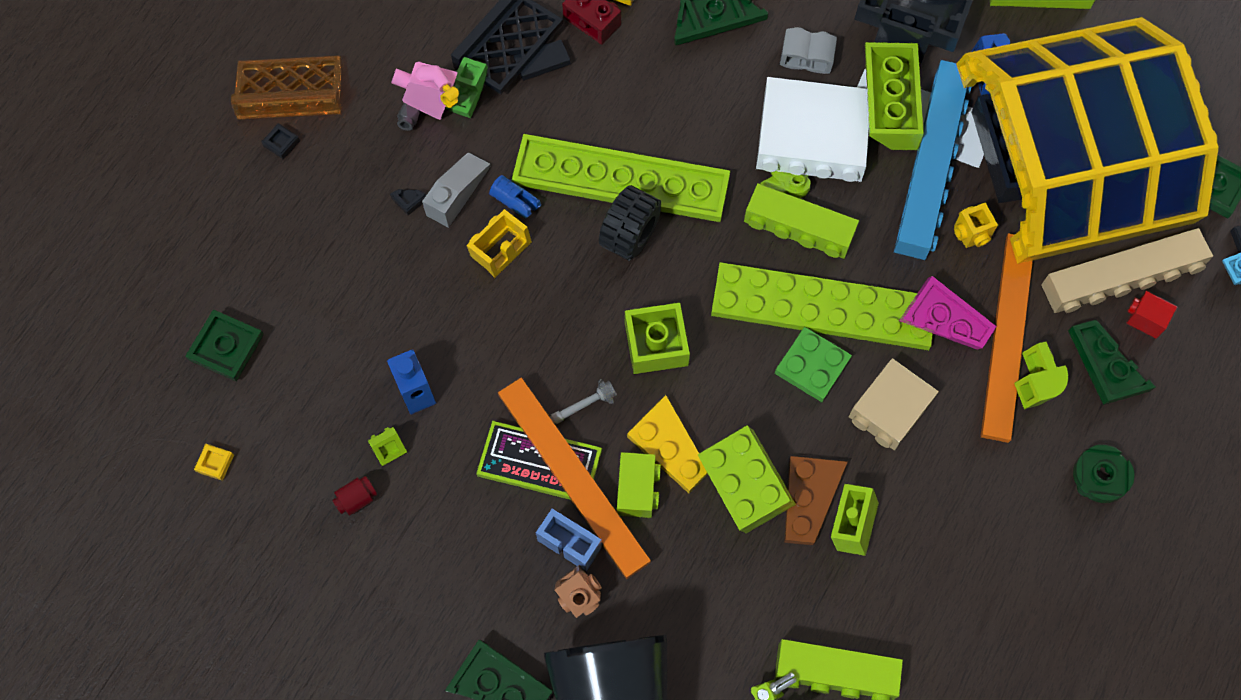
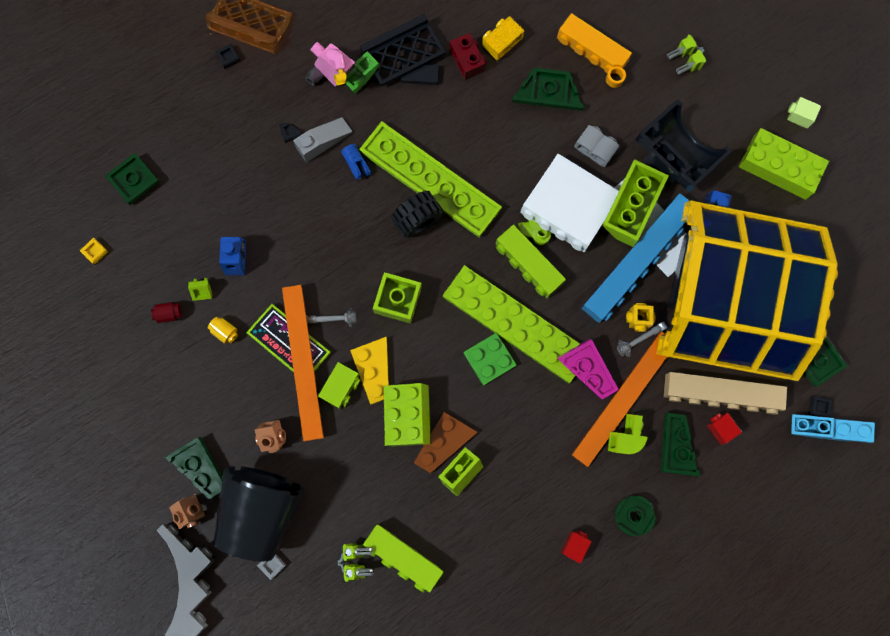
camera: 20 degrees right, 10 degrees up
(443, 484) = (222, 330): none -> yellow brick
(491, 234) = (320, 183): yellow window -> none
(563, 534) = (277, 395): medium blue piece -> none
(892, 404) = (524, 409): tan brick -> none
(975, 273) = (624, 348): none -> piece
(1052, 547) = (576, 546): none -> red brick

